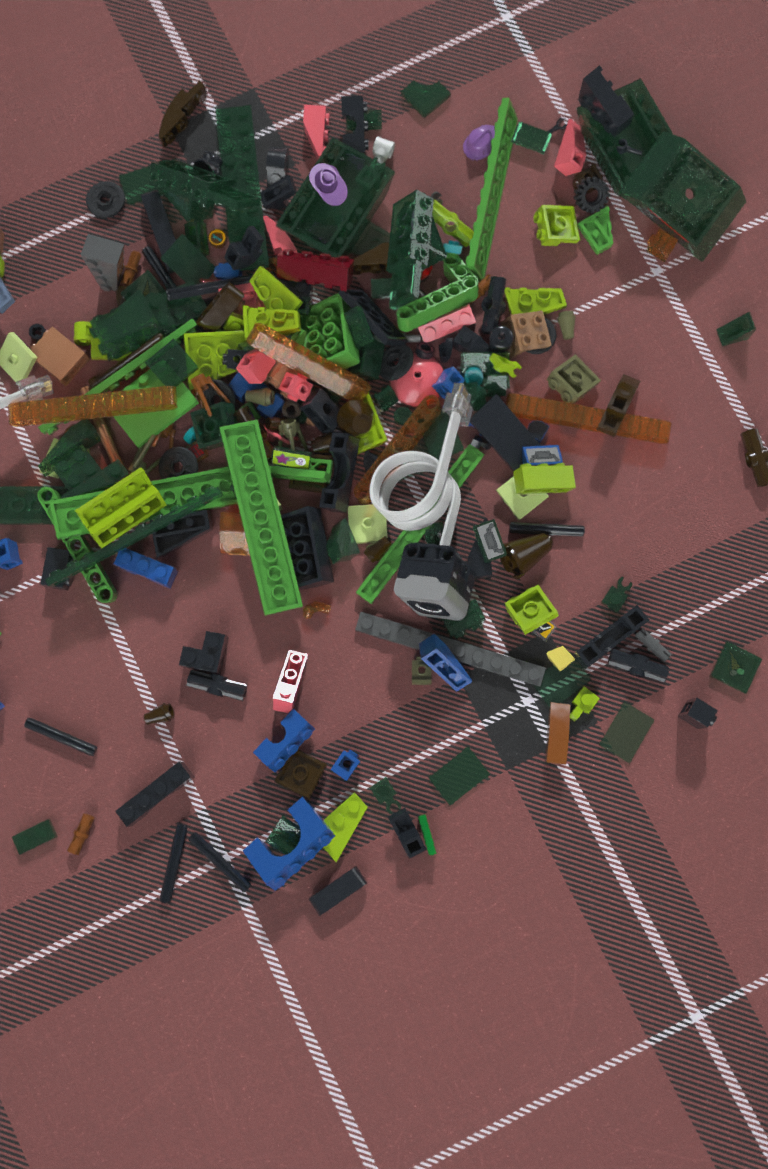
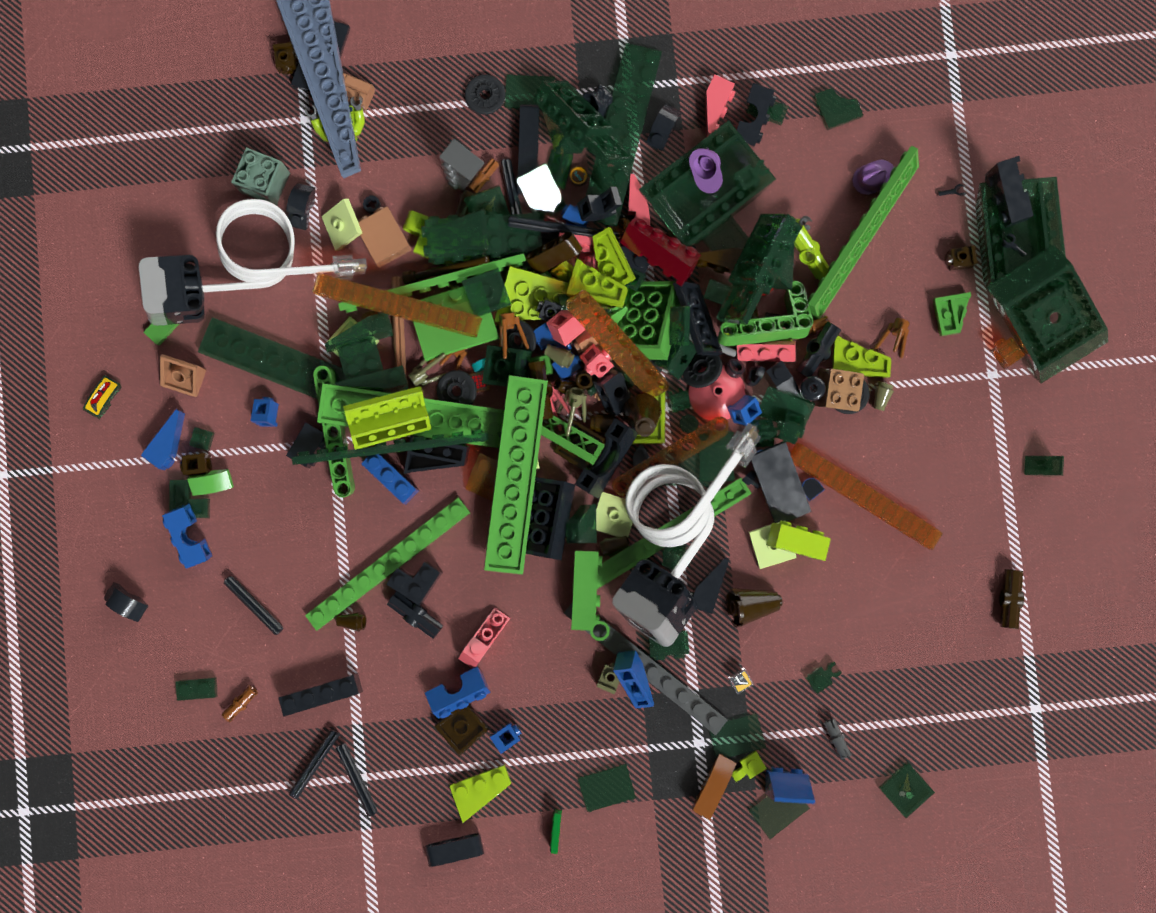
camera: 20 degrees right, 5 degrees up
(171, 652) = (387, 564): none -> bright green plate
(176, 115) = (584, 36): dark brown slope -> none
(276, 195) = (654, 156): black slope -> none
(278, 869) = (451, 794): blue arch -> none
(284, 836) = (428, 786): clear green bracket -> none
(291, 458) = (566, 428): slope -> none
(314, 607) = (534, 576): clear orange arm -> none
(367, 600) = (585, 593): none -> bright green hinge
(383, 149) = (772, 149): white pin -> none
(383, 792) = (531, 777): clear green plate -> none
(407, 833) = (538, 824): black brick -> none
(453, 247) = (802, 277): teal plate -> none
(473, 375) = (771, 411): teal tile -> none
(490, 541) = (722, 582): slope -> none
(503, 364) = (803, 415): lime plate -> none
(531, 137) = (924, 193): clear green slope -> none
(531, 609) = (735, 661): lime plate -> none
(541, 454) = (805, 516): slope -> none
(548, 529) = (782, 588): black axle -> none
(556, 225) = (912, 292): lime plate -> none
(558, 261) = (899, 329): none -> dark orange plant
(560, 657) = (745, 716): light yellow slope -> none
(572, 150) = (958, 222): coral slope -> none
(572, 380) = (865, 453): olive plate -> none
(584, 187) = (964, 284): black tyre -> none
(611, 637) = (800, 715): black arch -> none
(618, 405) = (899, 497): dark brown slope -> none
(626, 703) = (788, 786): none -> blue slope
(638, 665) = (815, 752): black piece -> none
(698, 713) = (852, 822): black brick -> none

